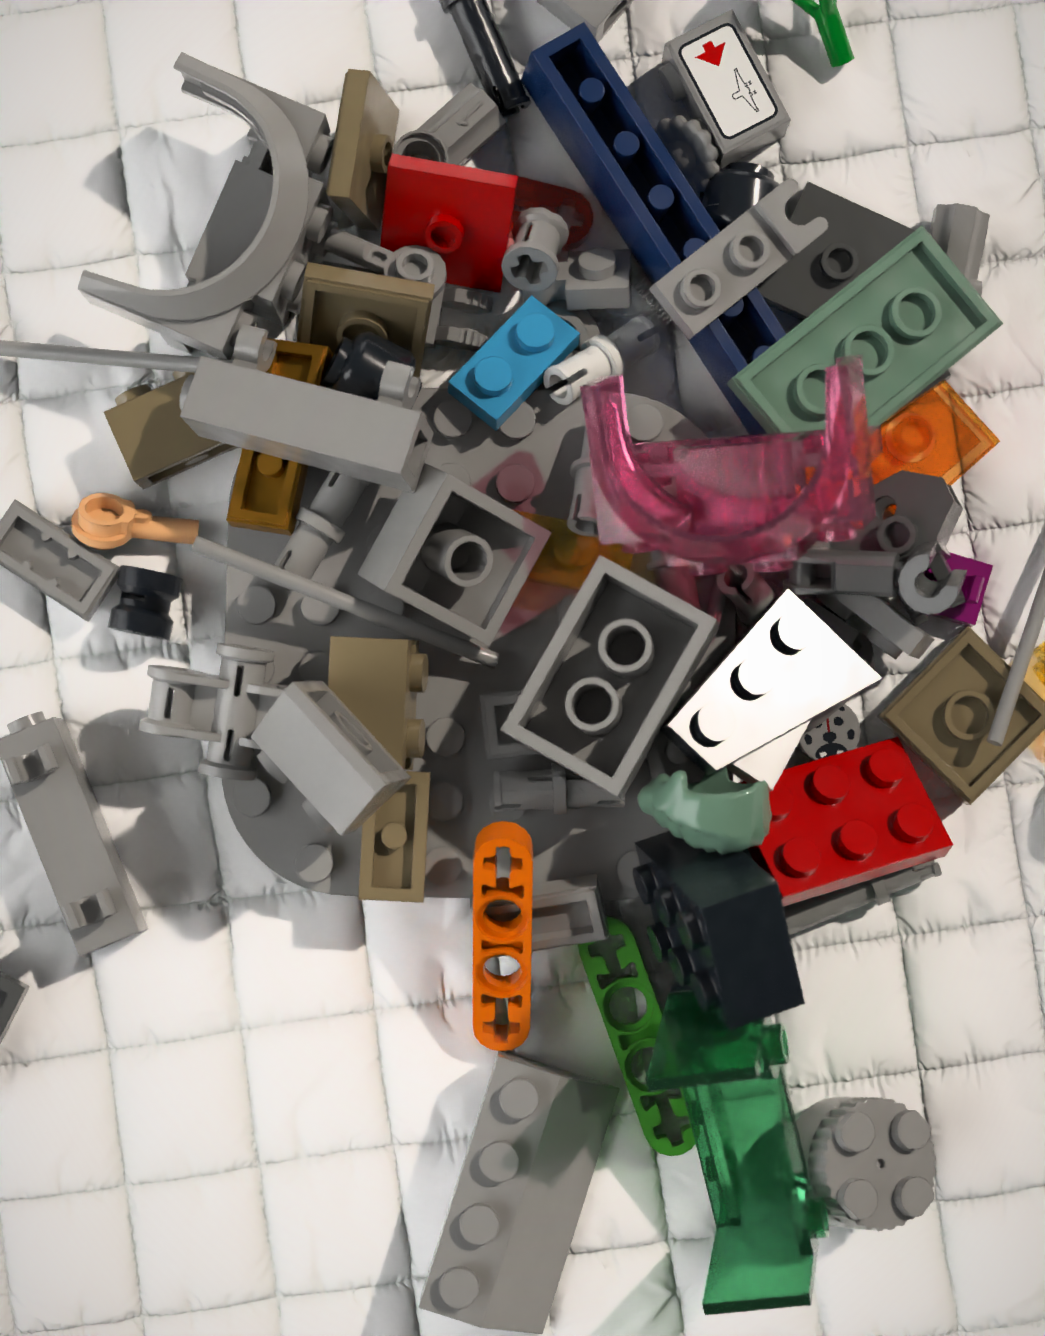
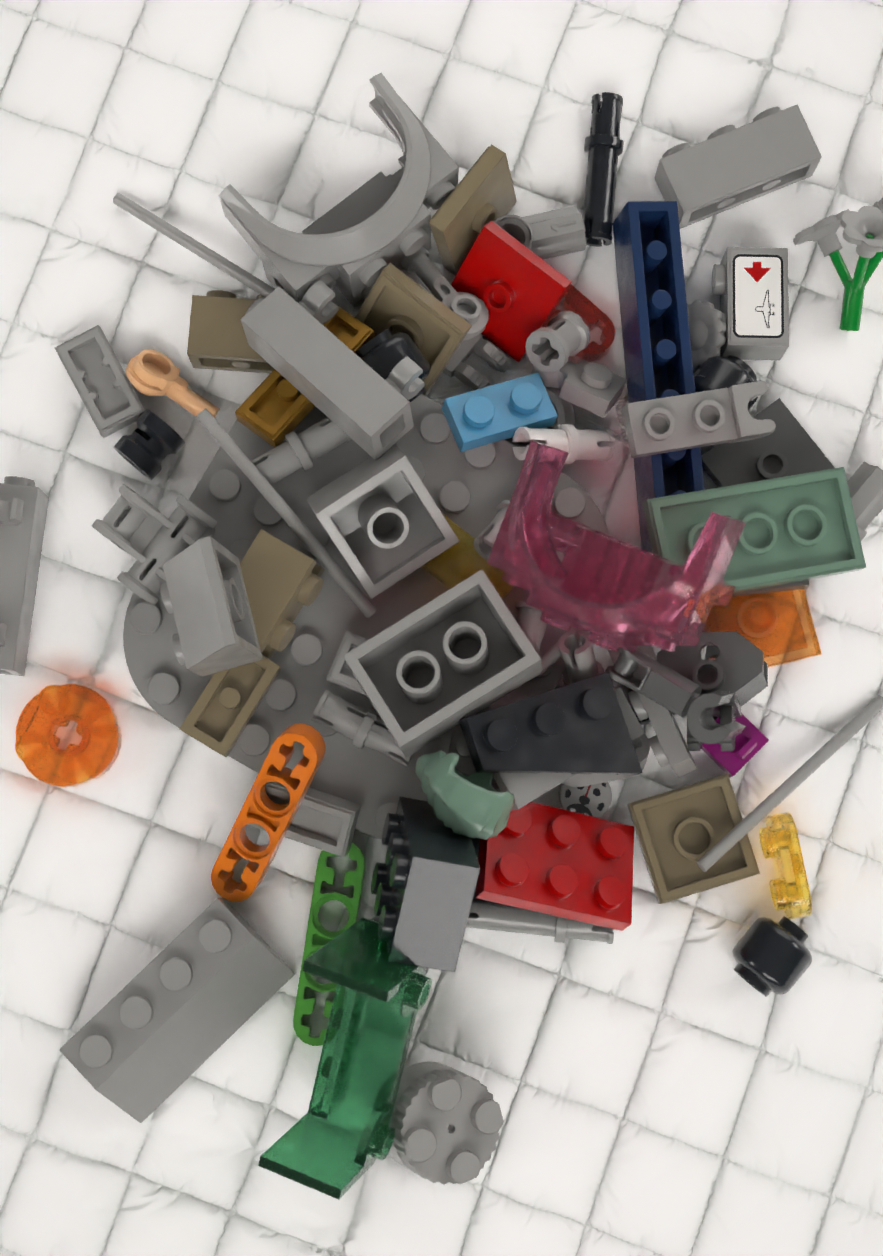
camera: 30 degrees right, 5 degrees down
(206, 943) = (80, 763): none -> clear orange plate

